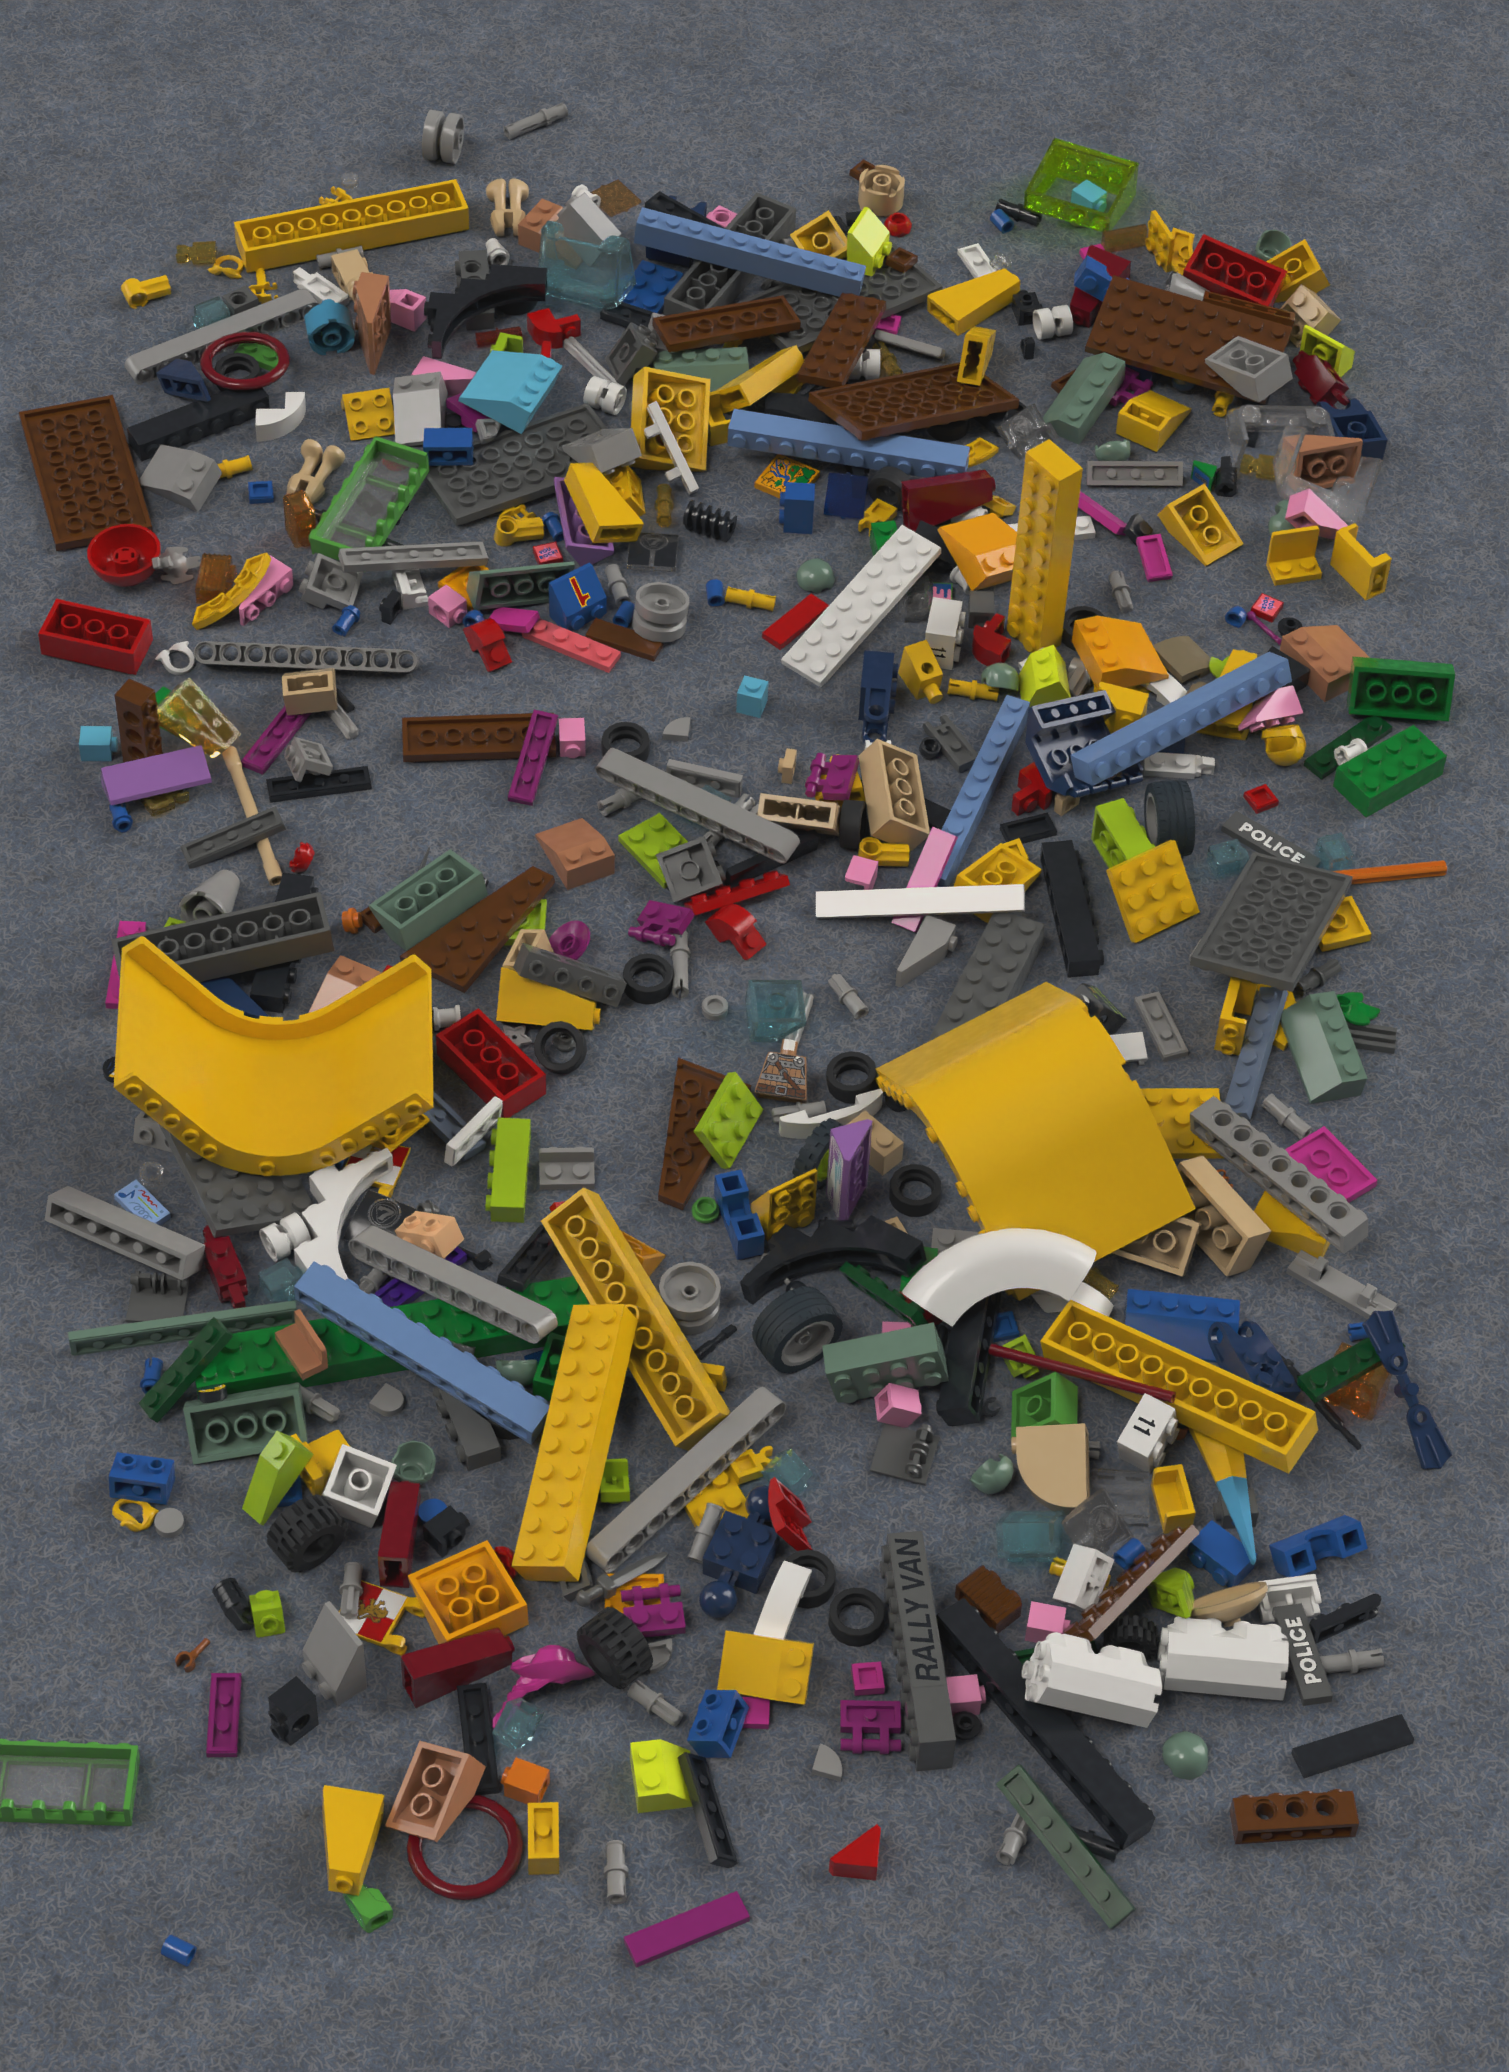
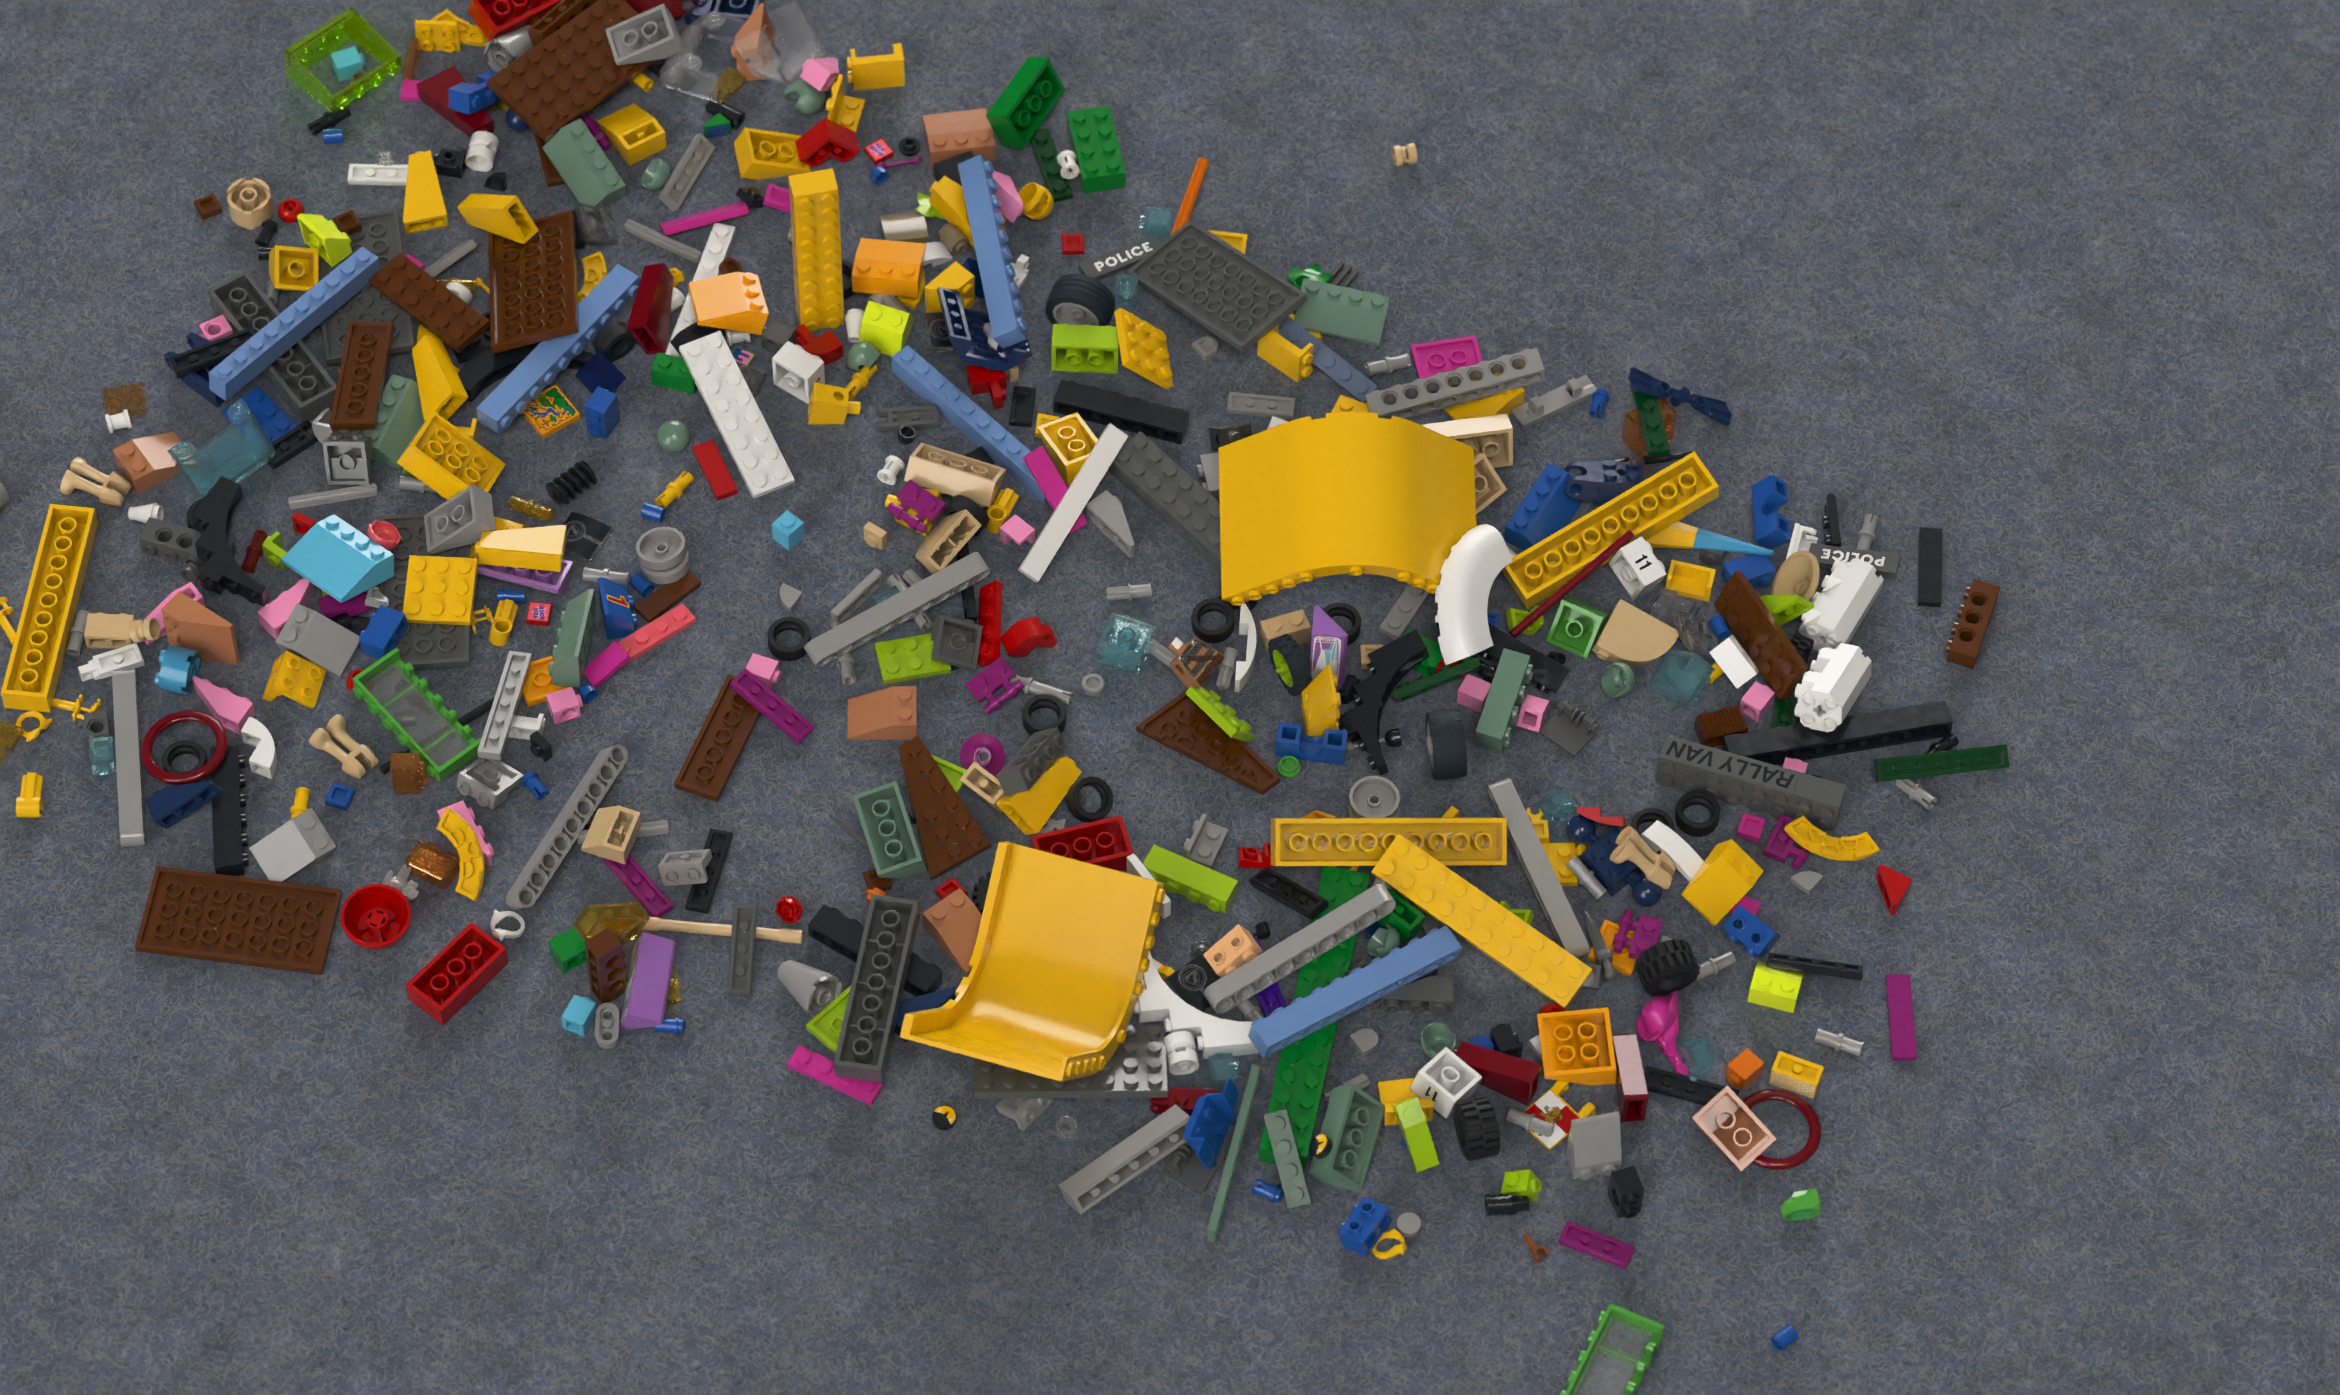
camera: 65 degrees left, 5 degrees up
(89, 771) = (607, 1027): none -> light grey plate
(142, 1203) = (1092, 1144): light blue tile -> none
(186, 1285) = (1211, 1122): none -> blue piece
(264, 355) = (169, 736): bright green plate -> none
(303, 1346) = (1311, 1067): nougat panel -> none
(313, 374) = (224, 706): none -> bright pink slope
(350, 1834) = (1746, 1193): yellow slope -> none
(488, 640) = (622, 687): red brick -> none
(518, 465) = (440, 590): none -> yellow plate
(544, 327) = (270, 512): red brick -> none
(557, 405) = (384, 534): none -> coral hair
(585, 221) = (178, 425): light grey brick -> none
(605, 395) = (382, 498): white wheel -> none
(662, 428) = (473, 468): white hinge -> none
(710, 1345) = (1414, 813): black piece -> none
(757, 1592) = (1631, 847): none -> tan piece
(876, 693) = (841, 444): dark blue brick -> none
(877, 512) = (632, 364): yellow plate -> none
(884, 1768) = (1829, 847): none -> yellow tile
(1185, 1755) = (1894, 665): sand green hair -> none
(1243, 559) = (826, 141): none -> red brick

